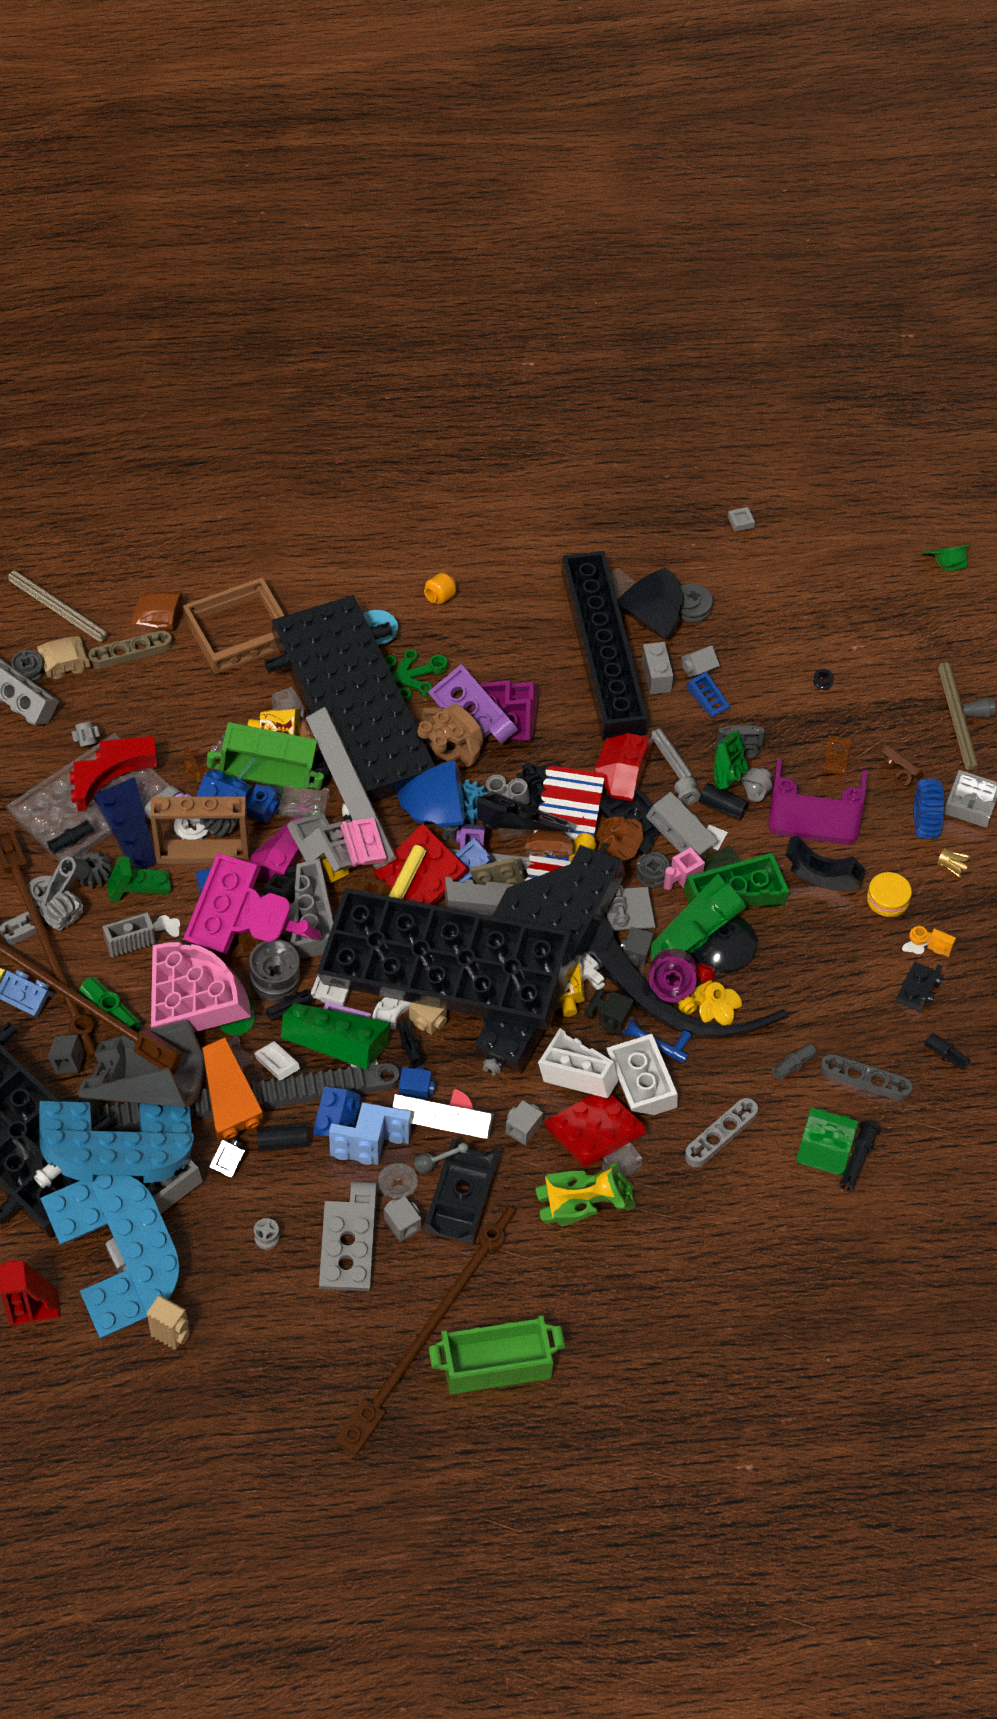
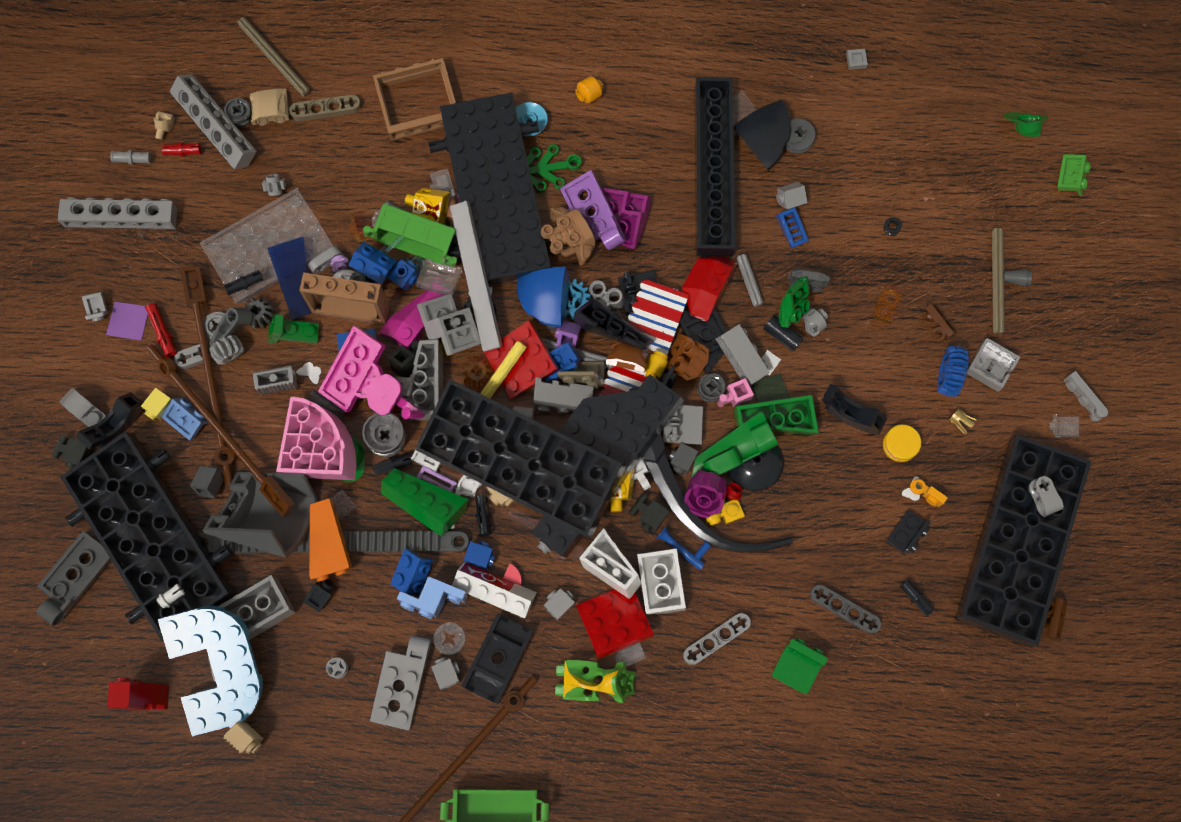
camera: 10 degrees right, 20 degrees up
(103, 998) = (243, 434): green piece -> none
(112, 761) = (289, 216): red arch -> none
(153, 1152) = (218, 595): dark azure plate -> none
(156, 611) = (352, 74): dark orange slope -> none
(277, 1060) = (373, 515): white tile -> none
(282, 1137) = (364, 584): black pin -> none
(363, 842) = (475, 331): bright pink plate -> none
(426, 1162) = (473, 627): hinge -> none
(657, 668) = (754, 196): light grey brick -> none
(687, 791) = (755, 318): light grey wheel -> none
(721, 1007) = (740, 526): yellow plate -> none
(794, 1061) = (789, 585): dark grey pin -> none
(815, 816) = (856, 362): magenta windscreen -> none
(862, 1146) = (829, 672): black pin -> none

